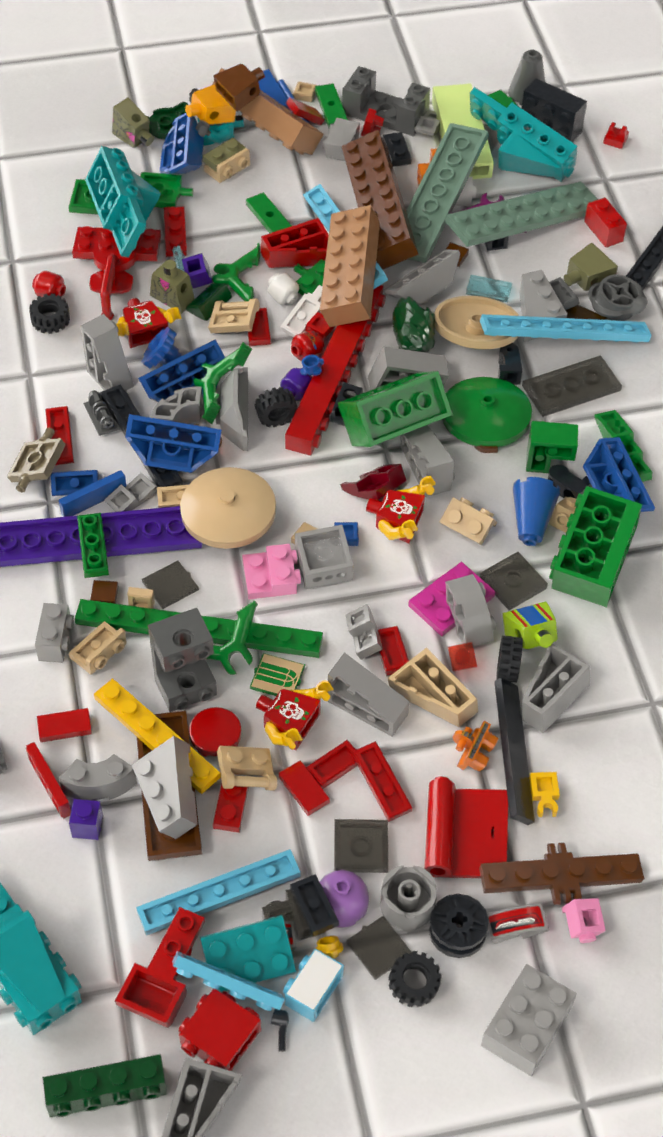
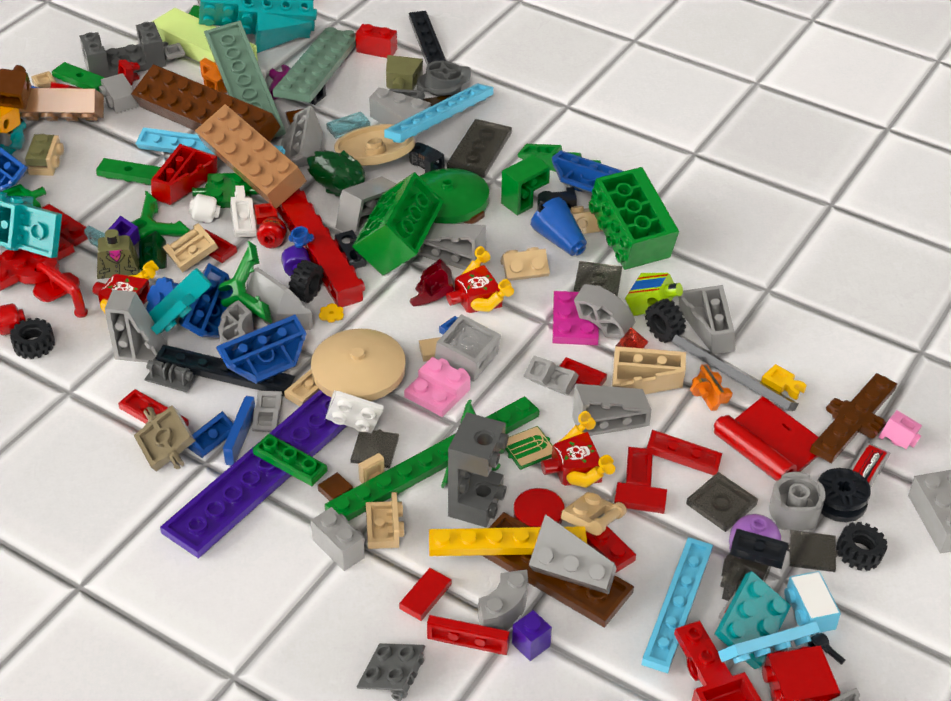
camera: 45 degrees left, 10 degrees down
(149, 357) = (178, 301): none -> teal bracket
(177, 542) = (353, 412): none -> white bracket
(271, 448) = (331, 313): none -> yellow plant
(330, 946) = (788, 569): yellow plate -> none

